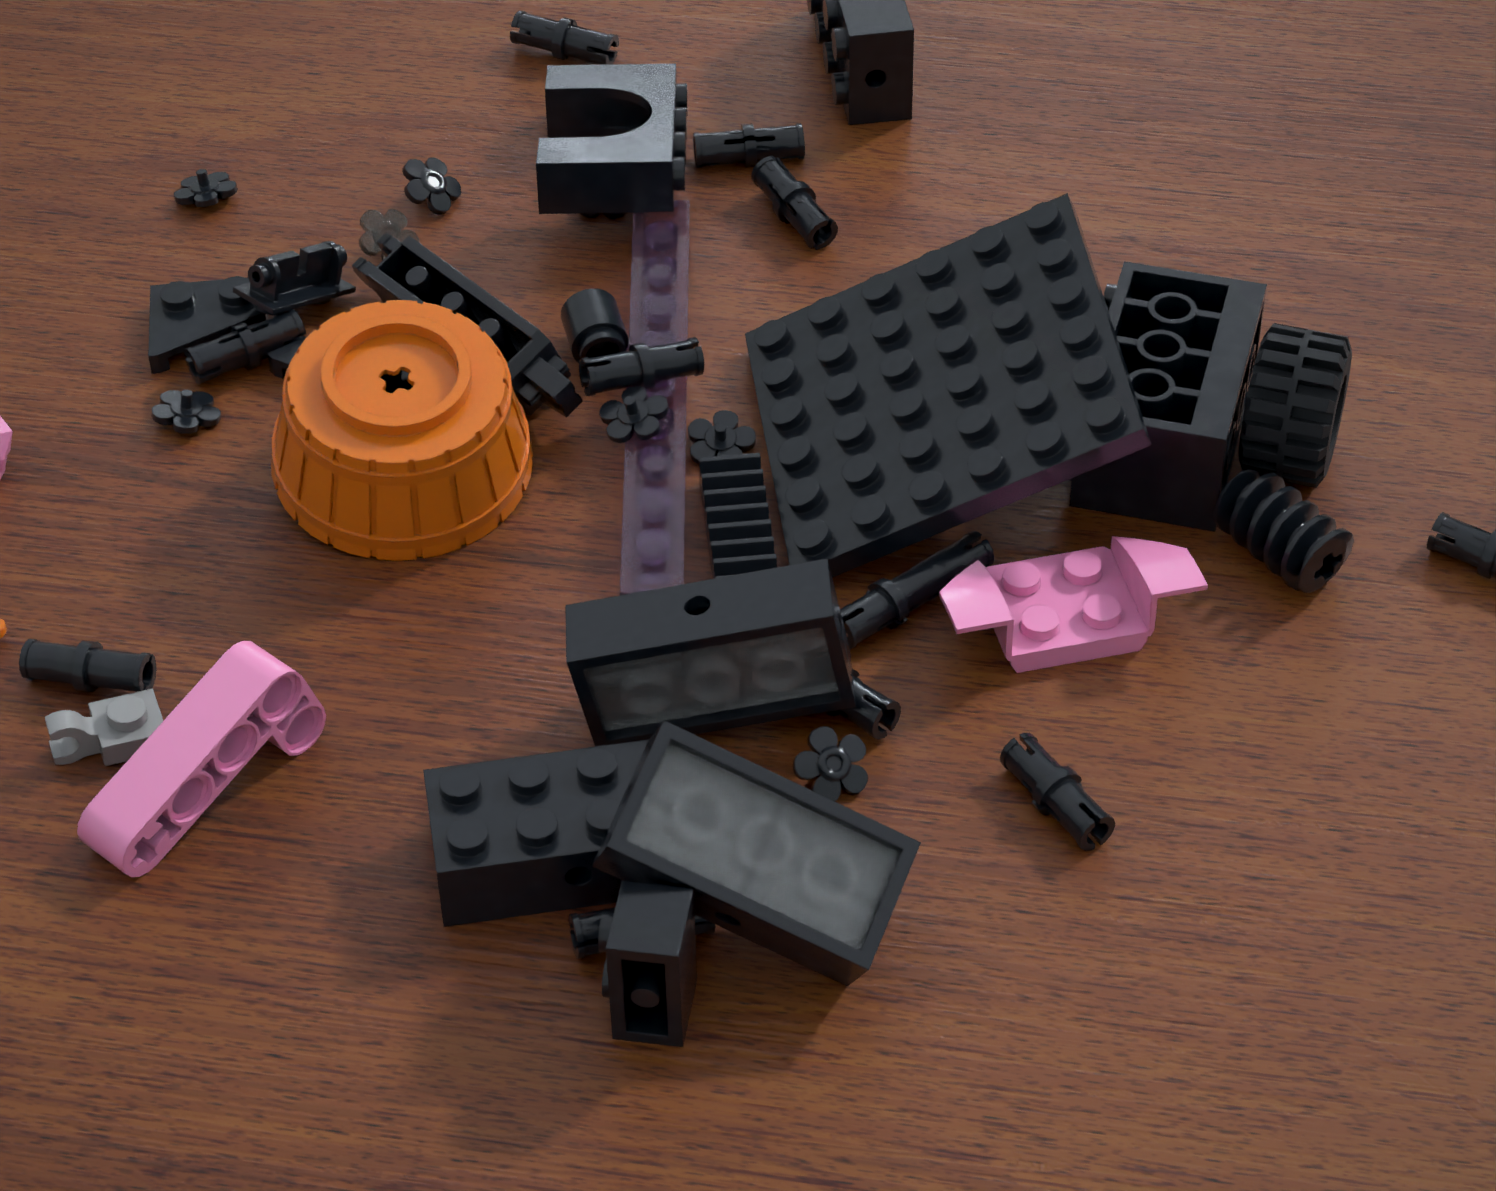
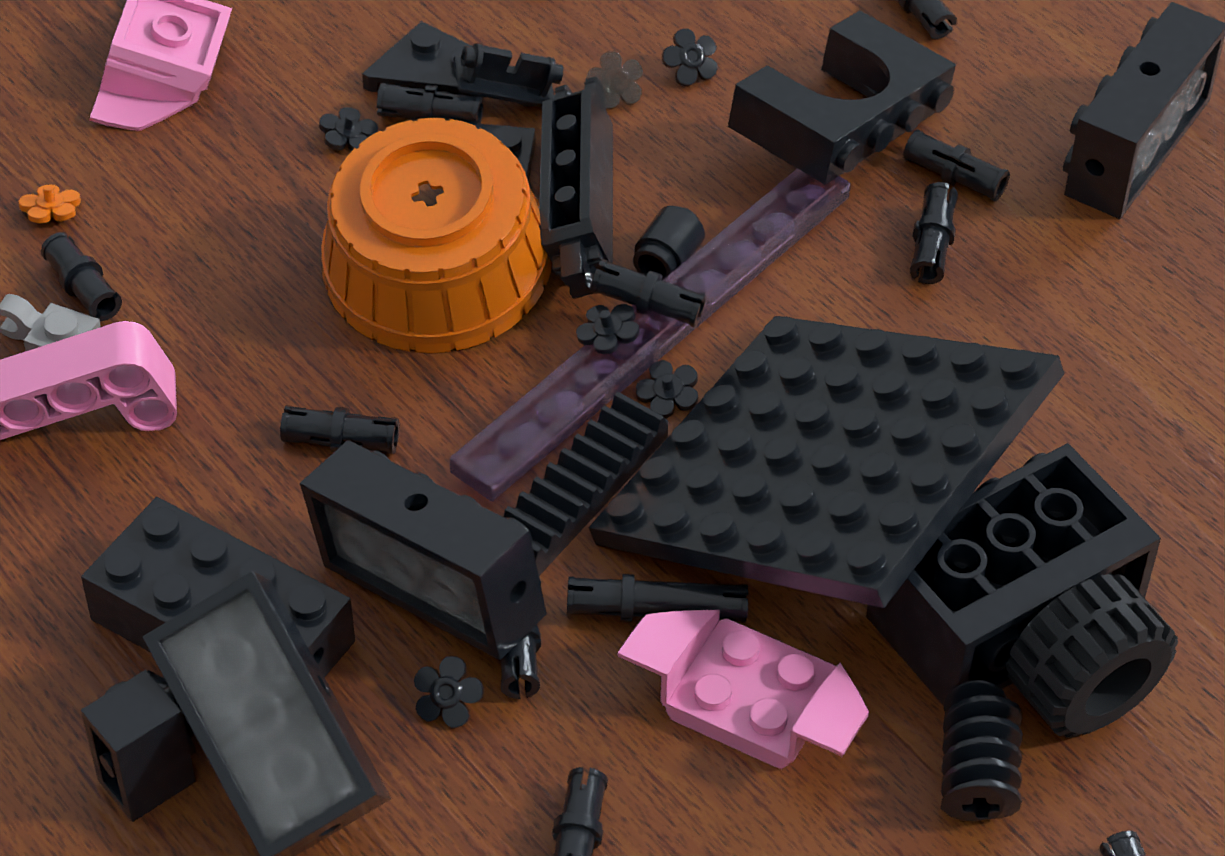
camera: 40 degrees right, 5 degrees up
(487, 637) = (337, 427): none -> black pin

